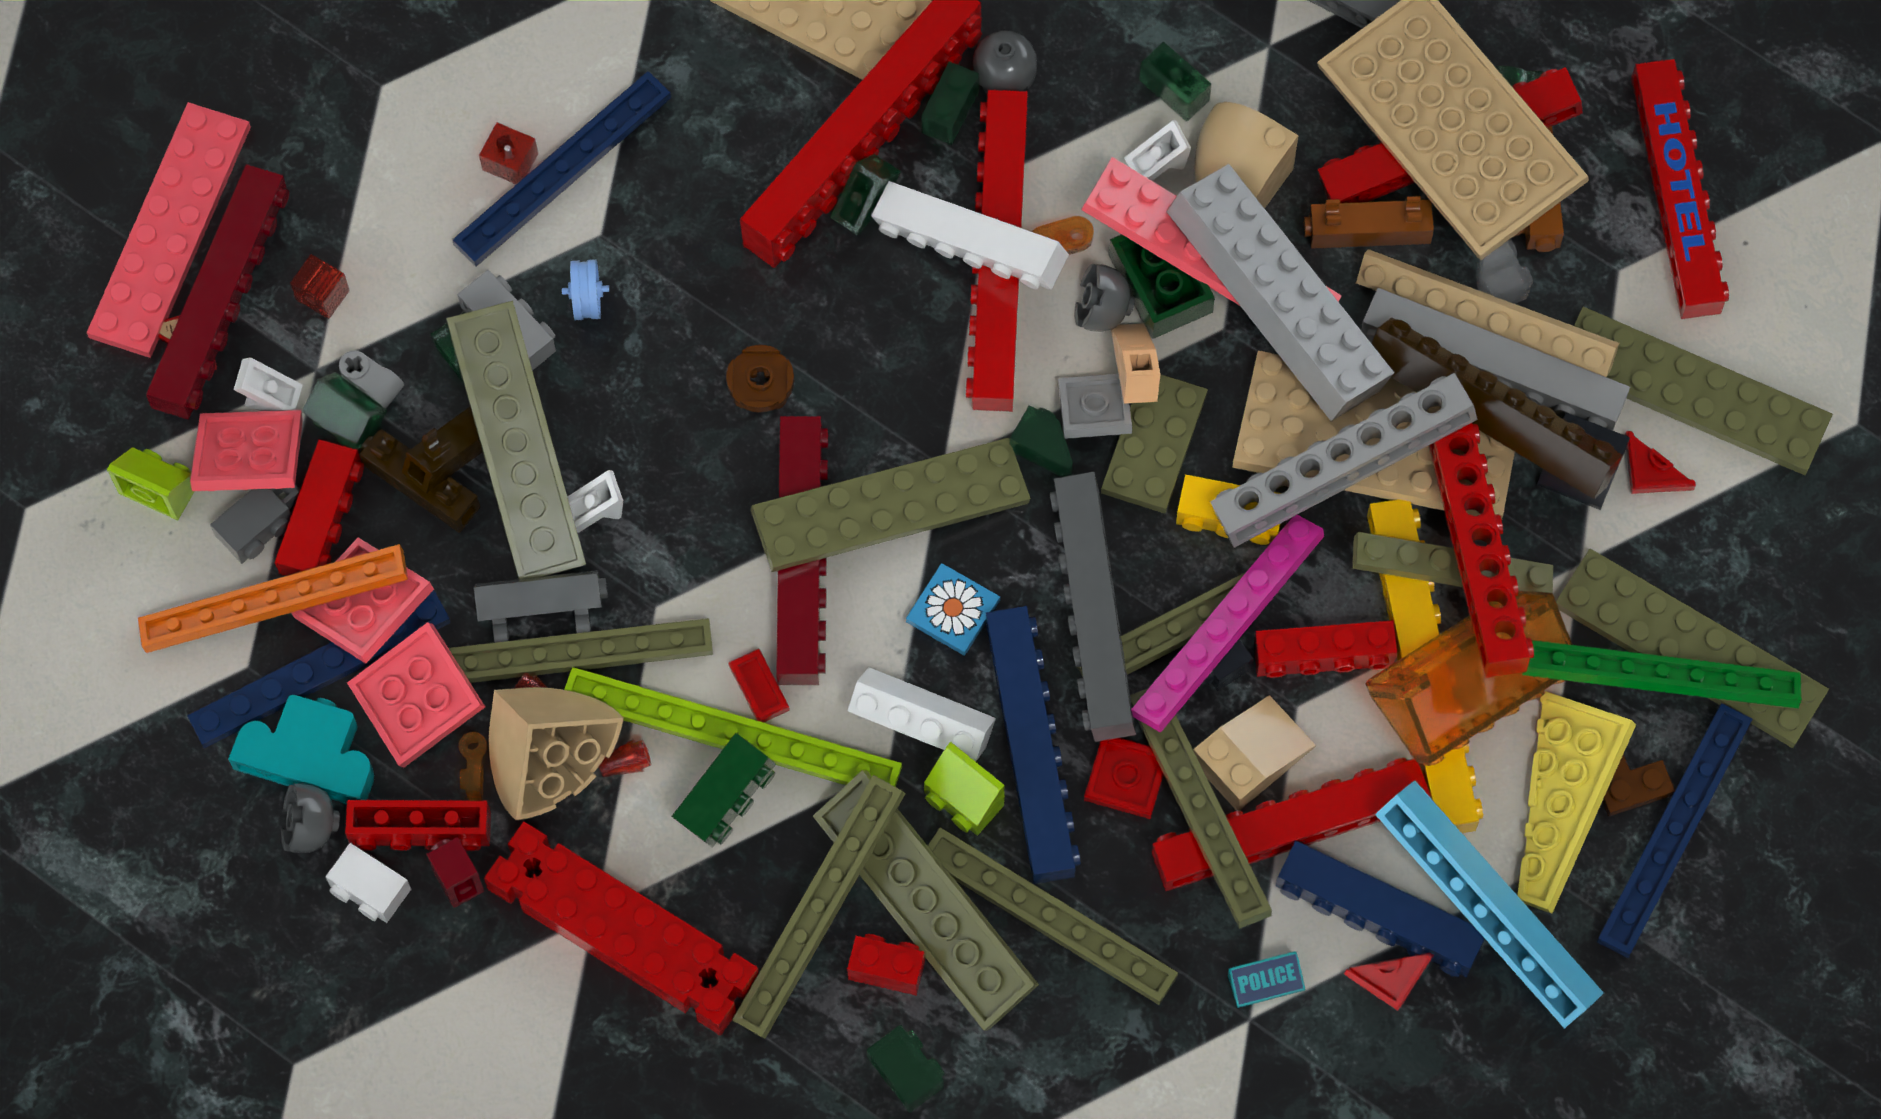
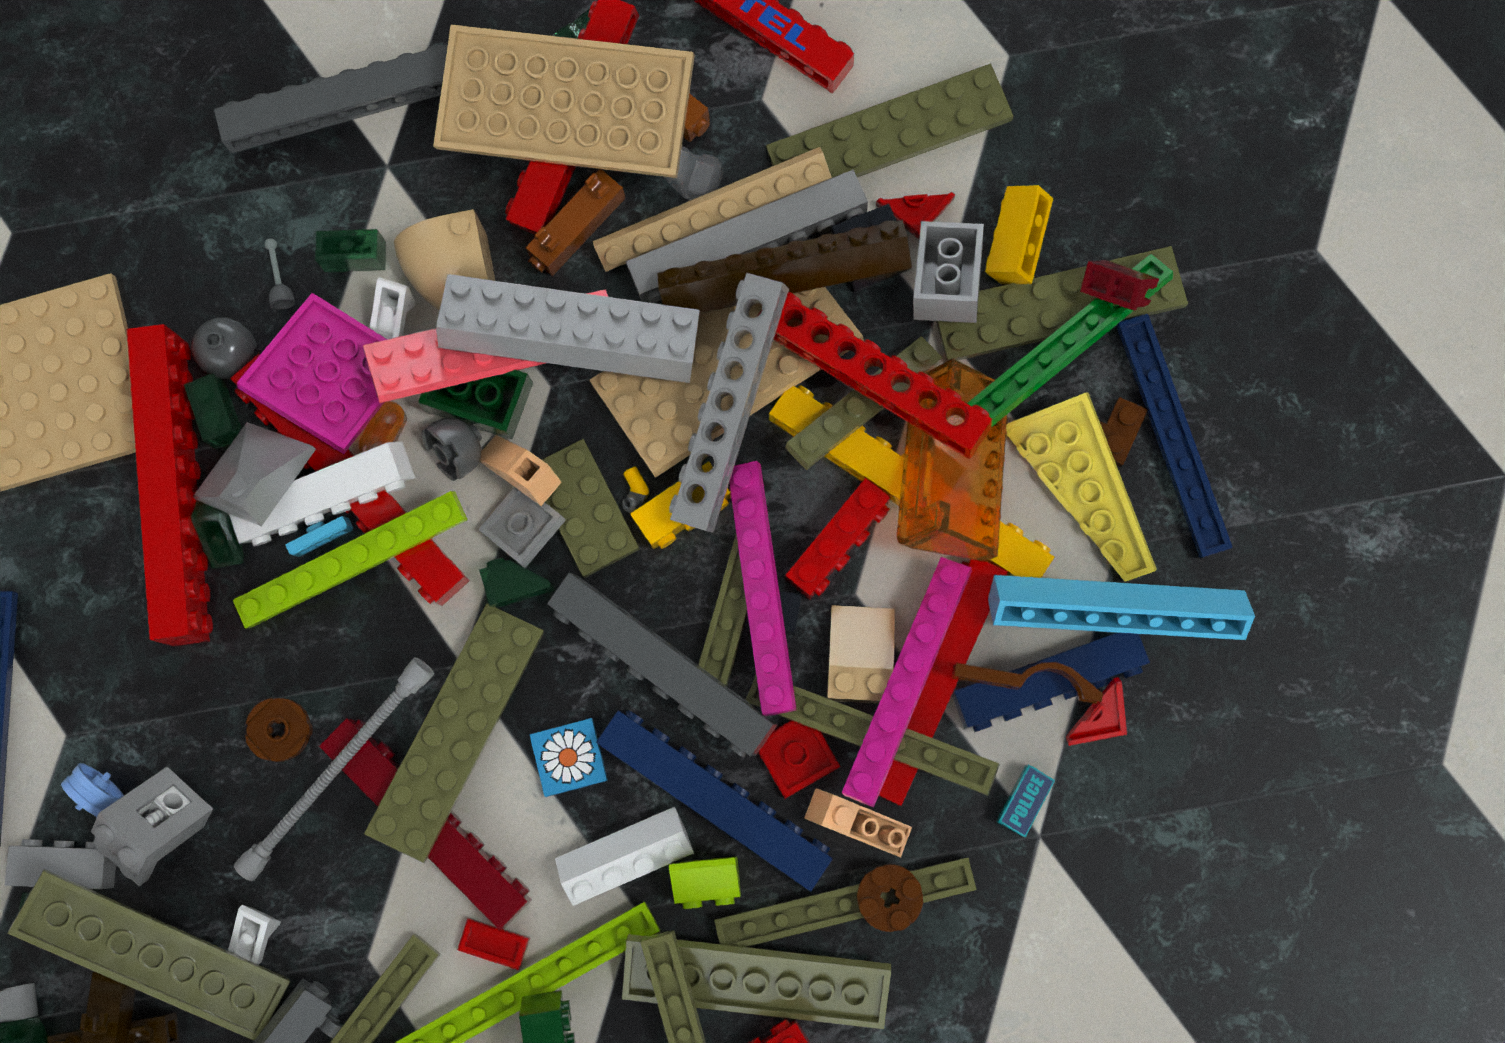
camera: 40 degrees left, 10 degrees up
(603, 350) = (132, 839): none -> light grey brick
(652, 453) = (254, 860): none -> light grey hose
(935, 174) = (254, 473): none -> light grey slope
(935, 268) = (318, 535): none -> medium azure plate
(941, 306) = (350, 559): none -> lime plate
(1056, 148) = (318, 374): none -> dark pink plate
(1087, 65) = (280, 295): none -> dark grey hinge
(1096, 921) = (907, 889): none -> reddish brown plate
(1121, 868) = (858, 822): none -> light nougat slope
(1211, 467) = (638, 490): none -> arm
(1267, 792) = (906, 682): none -> dark pink plate
(1351, 875) = (1085, 690): none -> reddish brown piece
(1622, 532) = (948, 272): none -> light grey brick
(1711, 561) = (1019, 234): none -> yellow brick
(1745, 665) = (1117, 284): none -> dark red hinge

